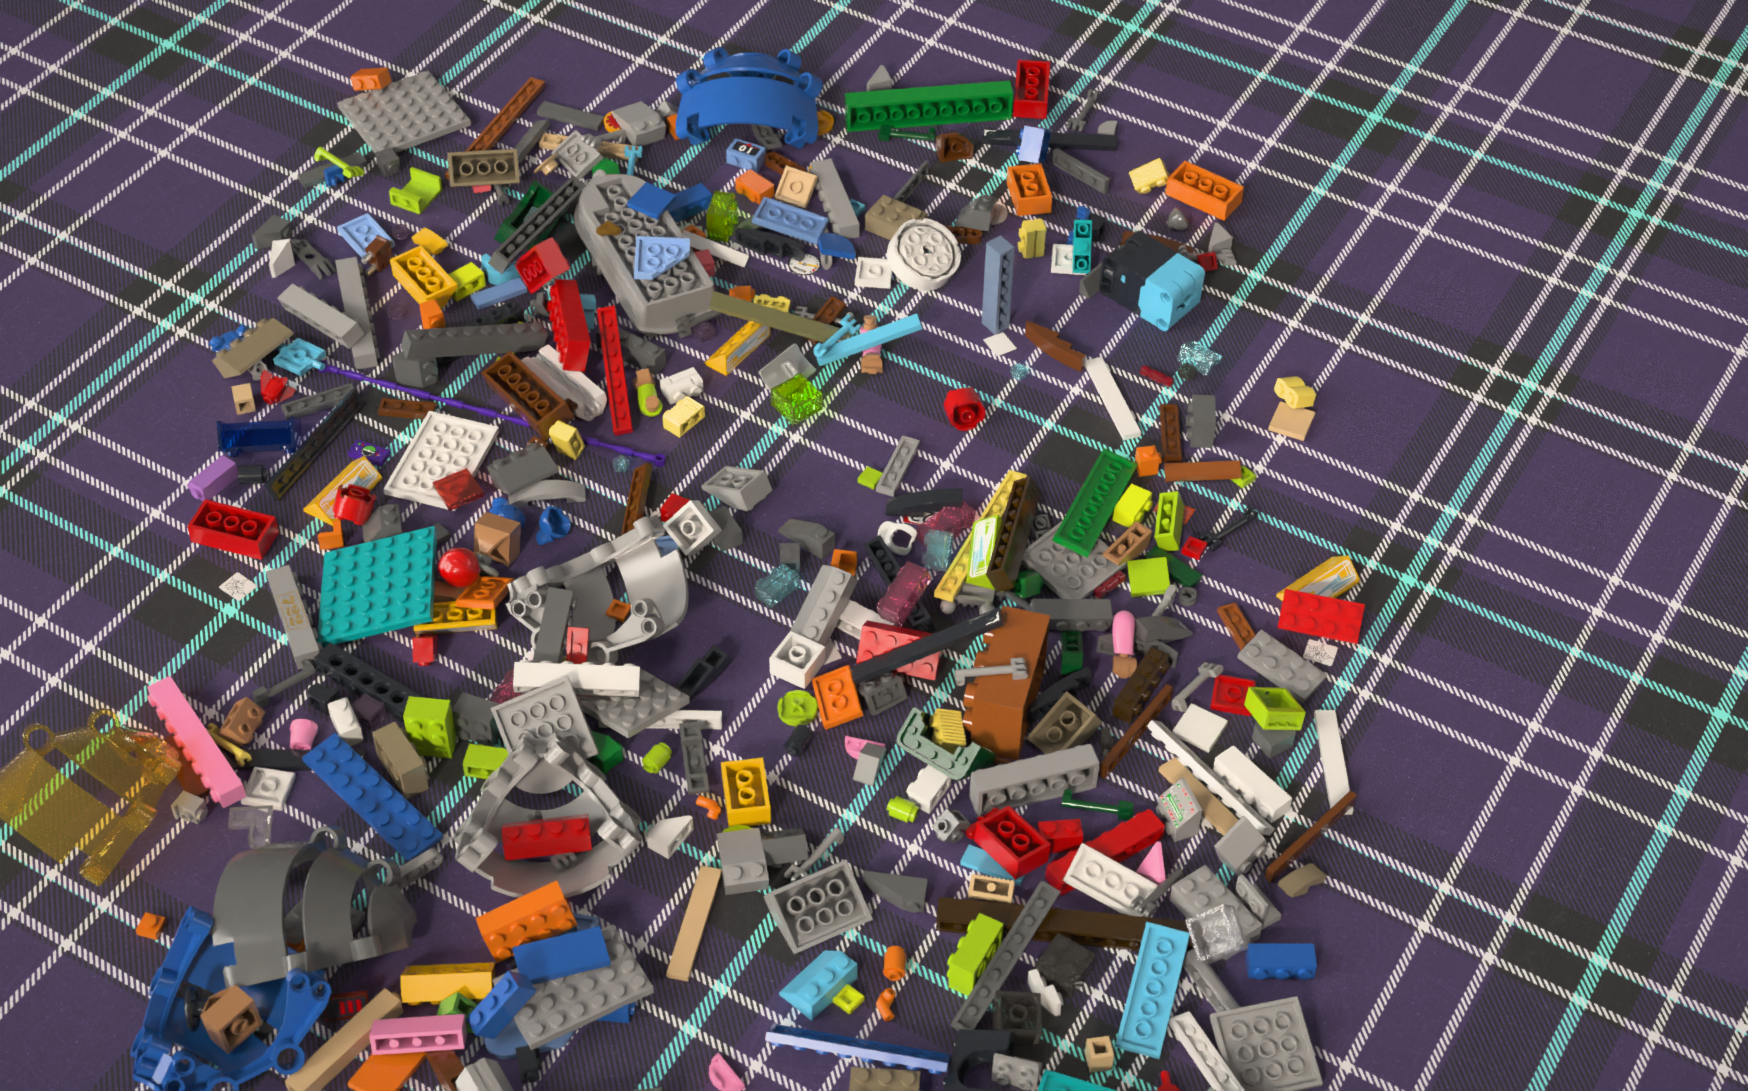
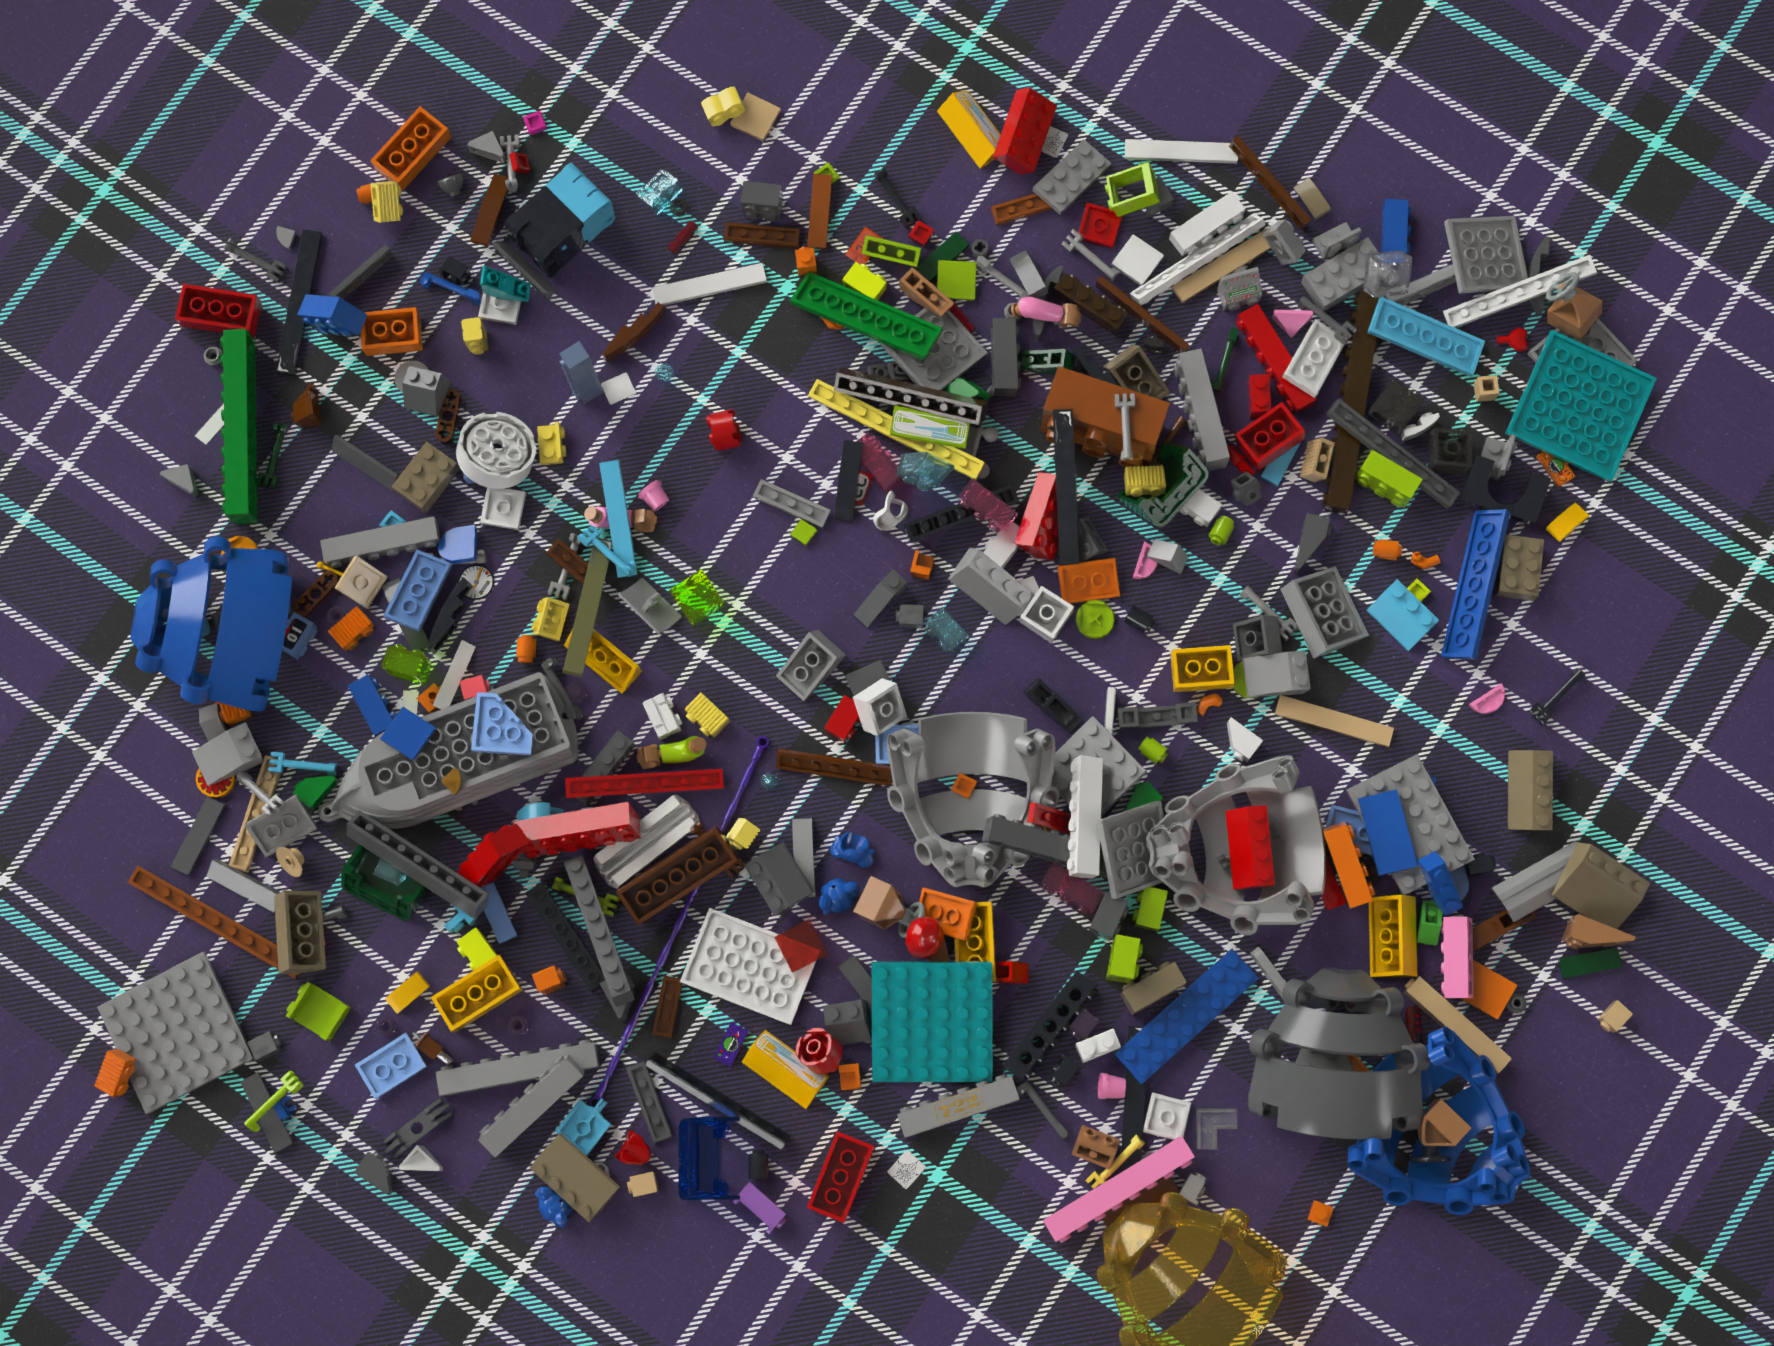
camera: 80 degrees left, 30 degrees up
(895, 367) = (654, 495): none -> bright pink piece
(938, 301) = (550, 444): none -> light yellow bracket
(1250, 272) = (535, 123): none -> dark pink tile

